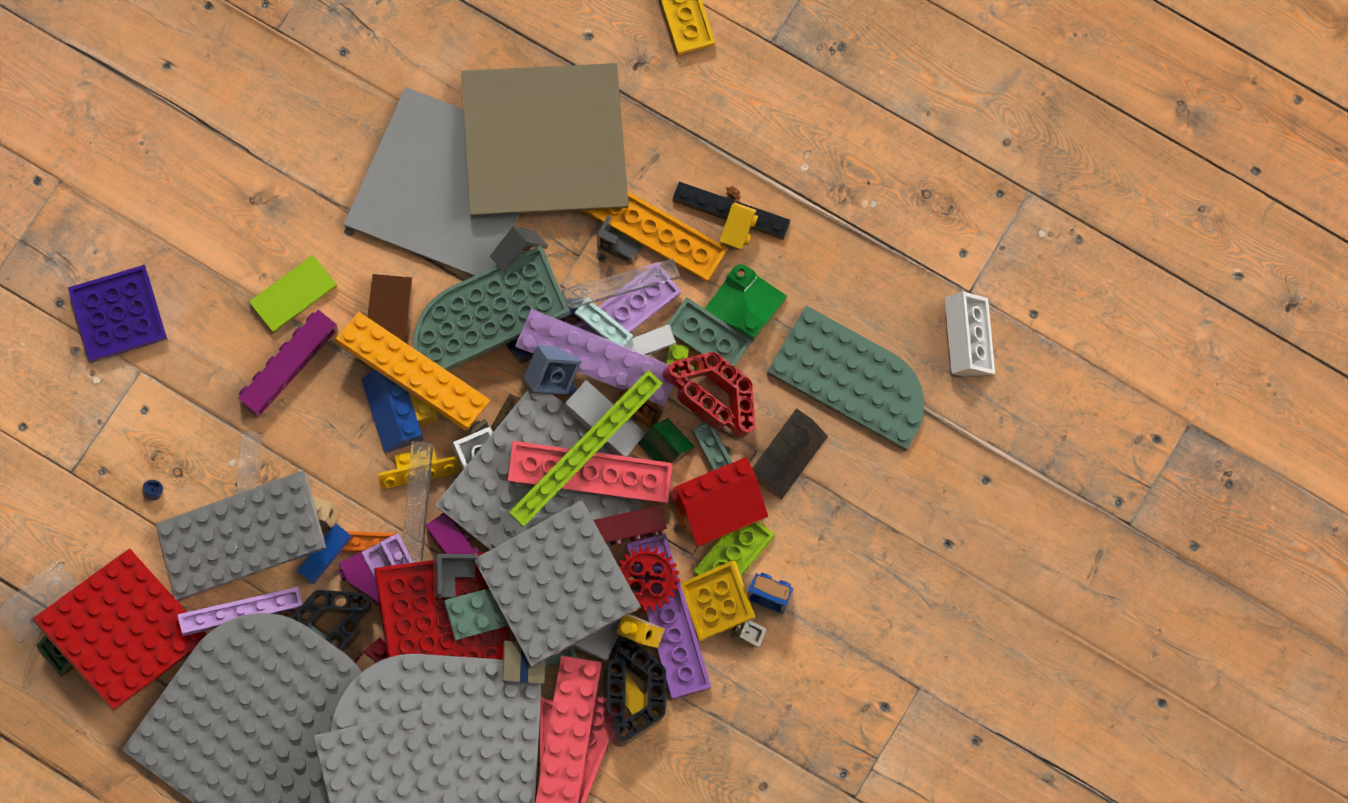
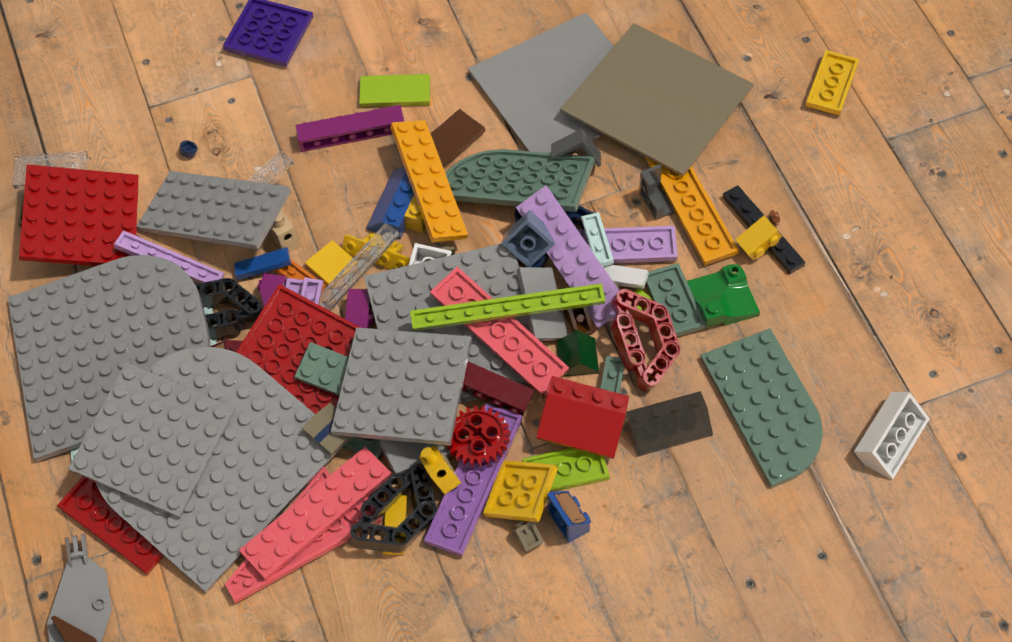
camera: 45 degrees right, 15 degrees down
(383, 509) = (328, 262): none -> yellow tile
(447, 568) = (331, 321): dark grey panel -> none
(620, 284) = (633, 219): clear tile -> none

